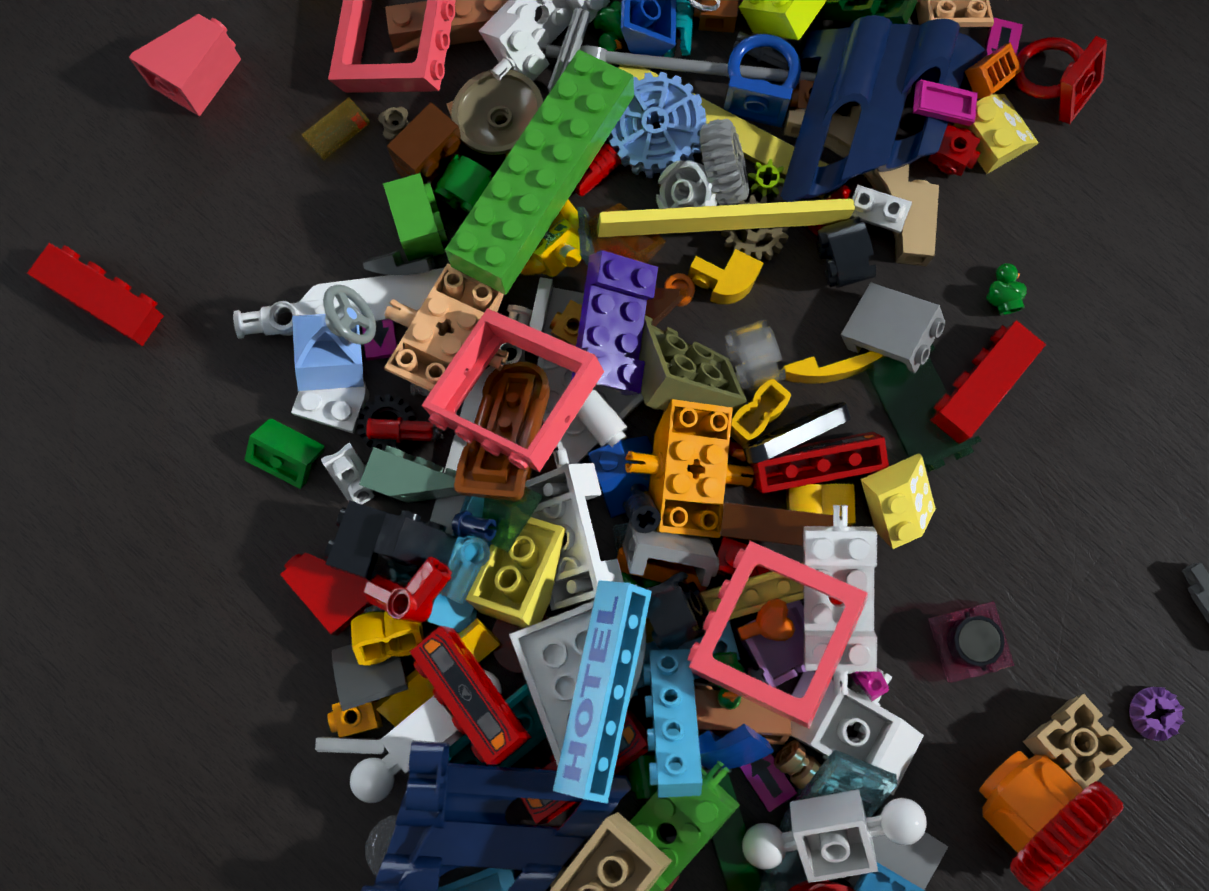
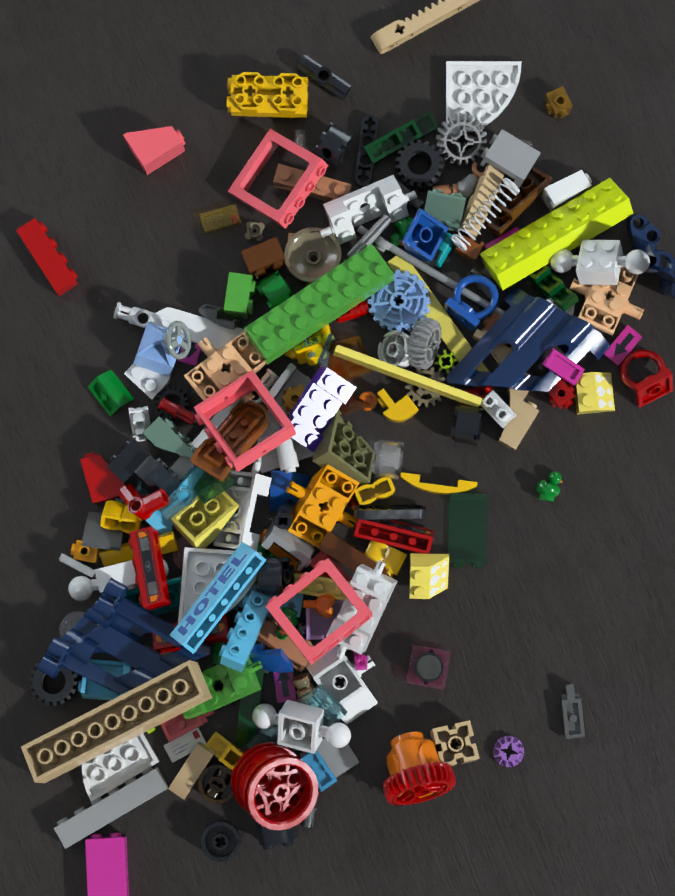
camera: 30 degrees right, 5 degrees up
(466, 524) = (189, 480): dark blue pin -> none
(894, 326) = (471, 479): light grey panel -> none
(979, 77) = (593, 355): orange slope -> none
(987, 382) = (509, 533): red brick -> none

